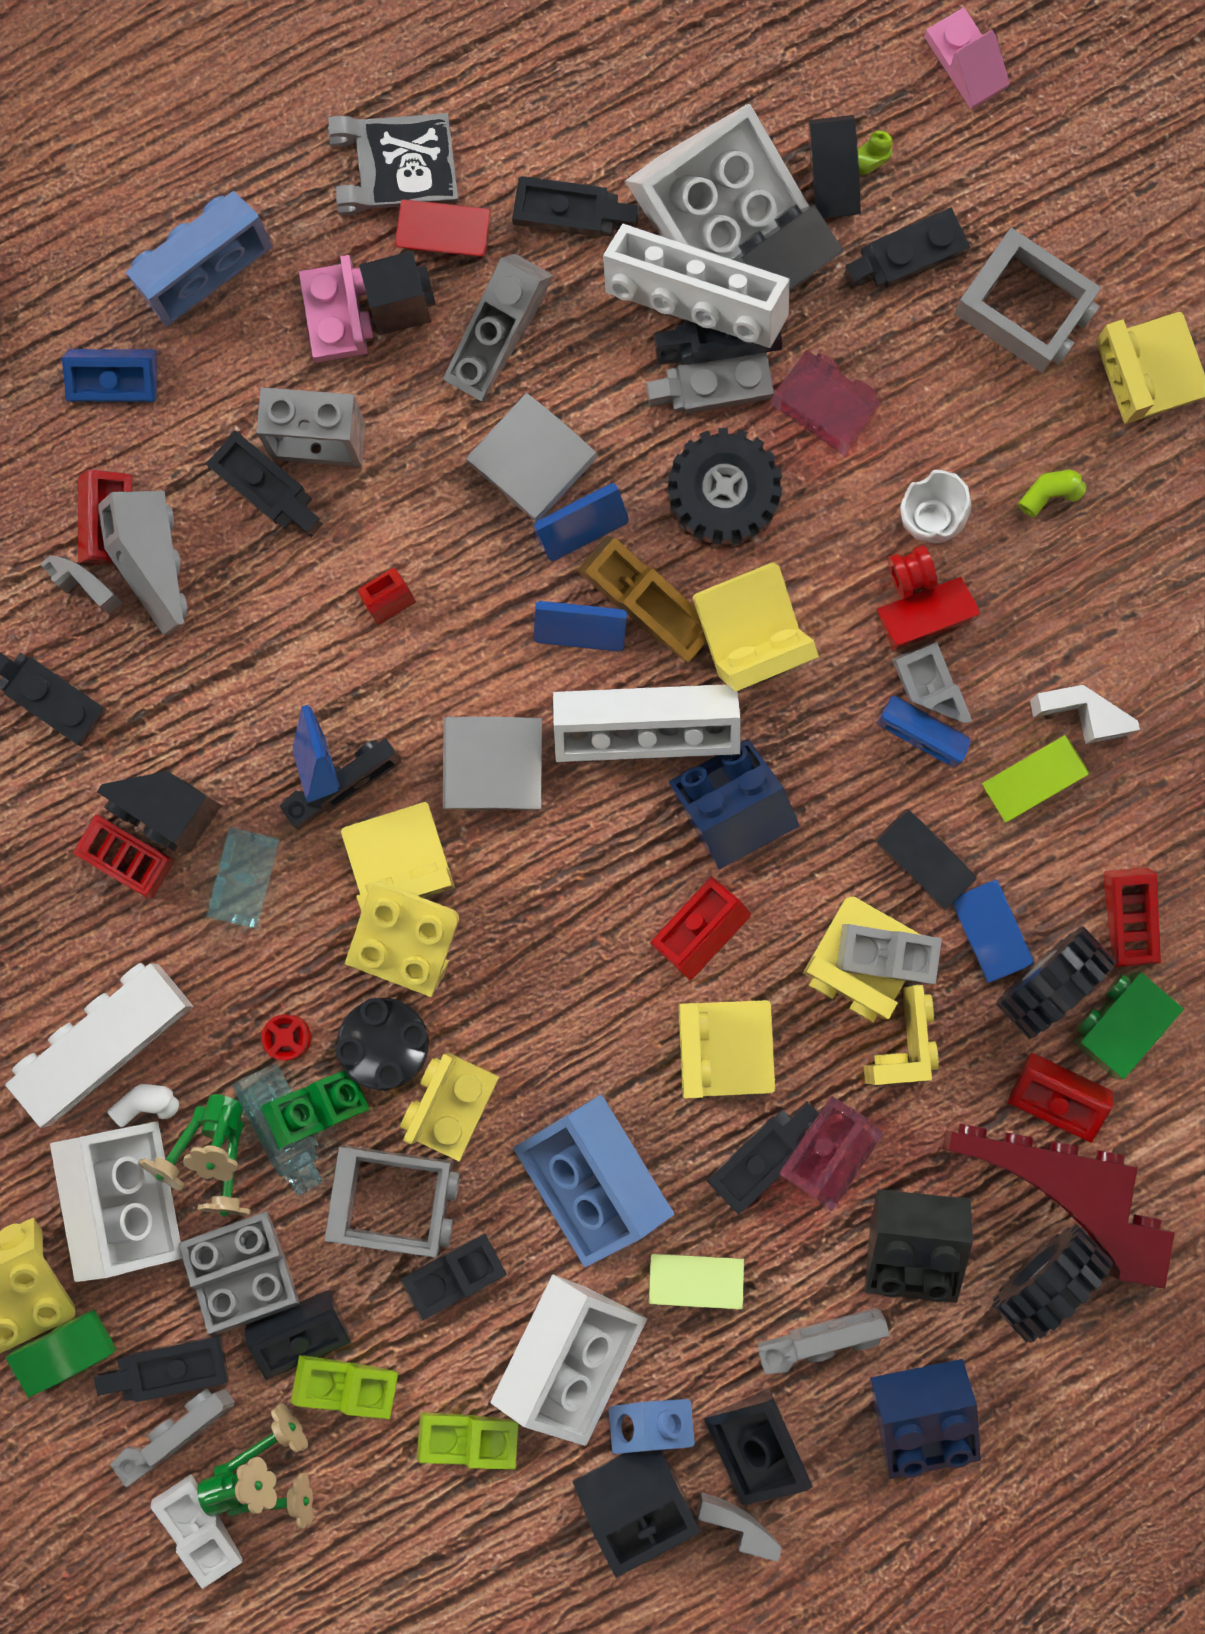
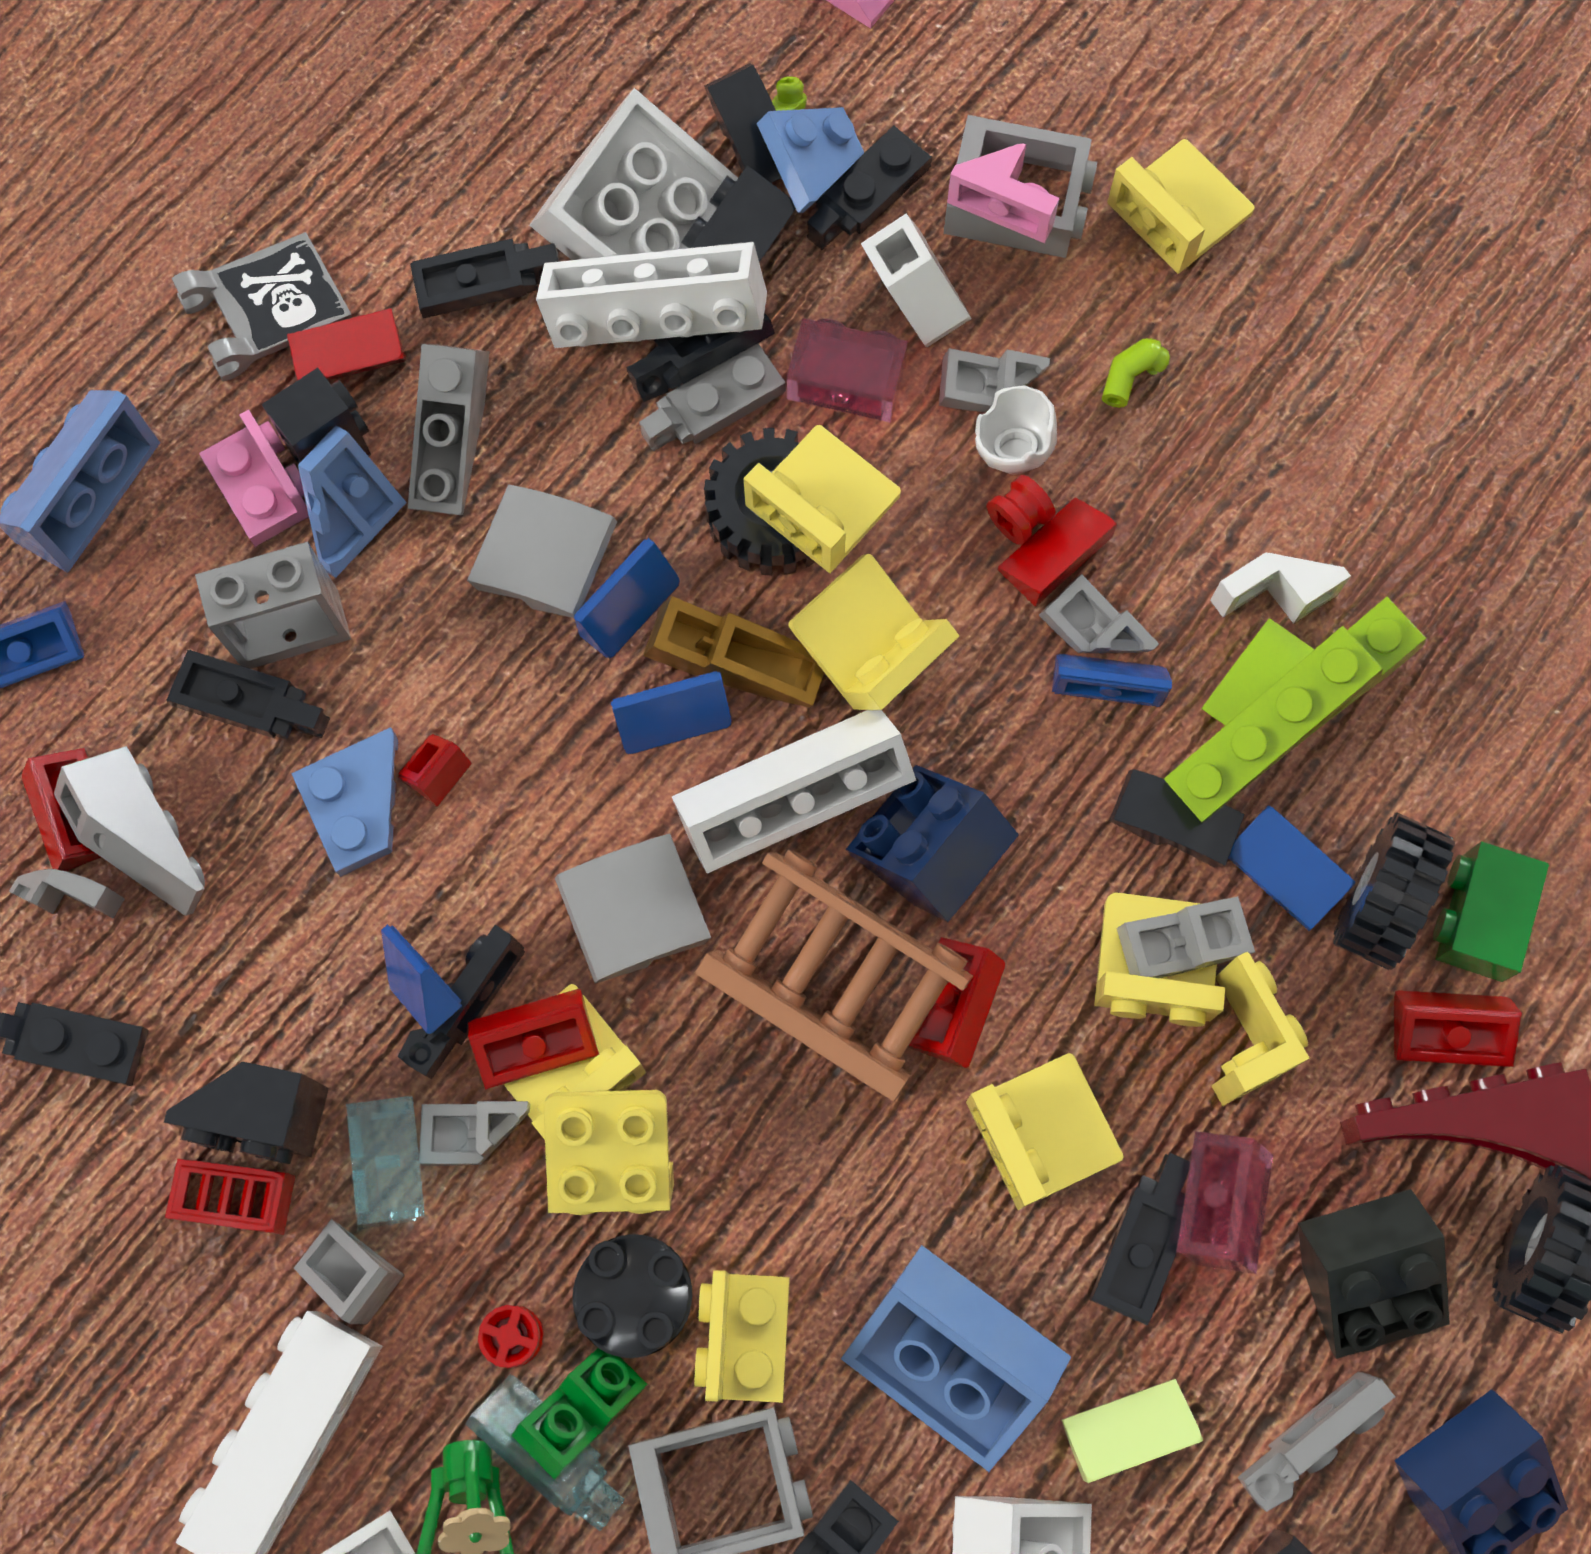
camera: 25 degrees left, 10 degrees down
(144, 1099) = (363, 1488): white arm -> none
(187, 946) = (347, 1274): none -> light grey slope
(308, 878) = (466, 1131): none -> light grey slope
(316, 596) = (353, 800): none -> medium blue wing
(381, 831) = (532, 1038): none -> red slope
(396, 358) = (345, 499): none -> medium blue wing
(573, 878) = (783, 1002): none -> nougat fence
(759, 506) = (821, 497): none -> light yellow bracket
(873, 207) = (810, 149): none -> medium blue wing
(910, 350) = (916, 280): none -> white slope
(926, 449) = (973, 378): none -> light grey slope
(997, 305) = (991, 190): none -> bright pink slope
(1050, 815) = (1296, 707): none -> lime arch
(1149, 915) = (1455, 780): red slope -> none

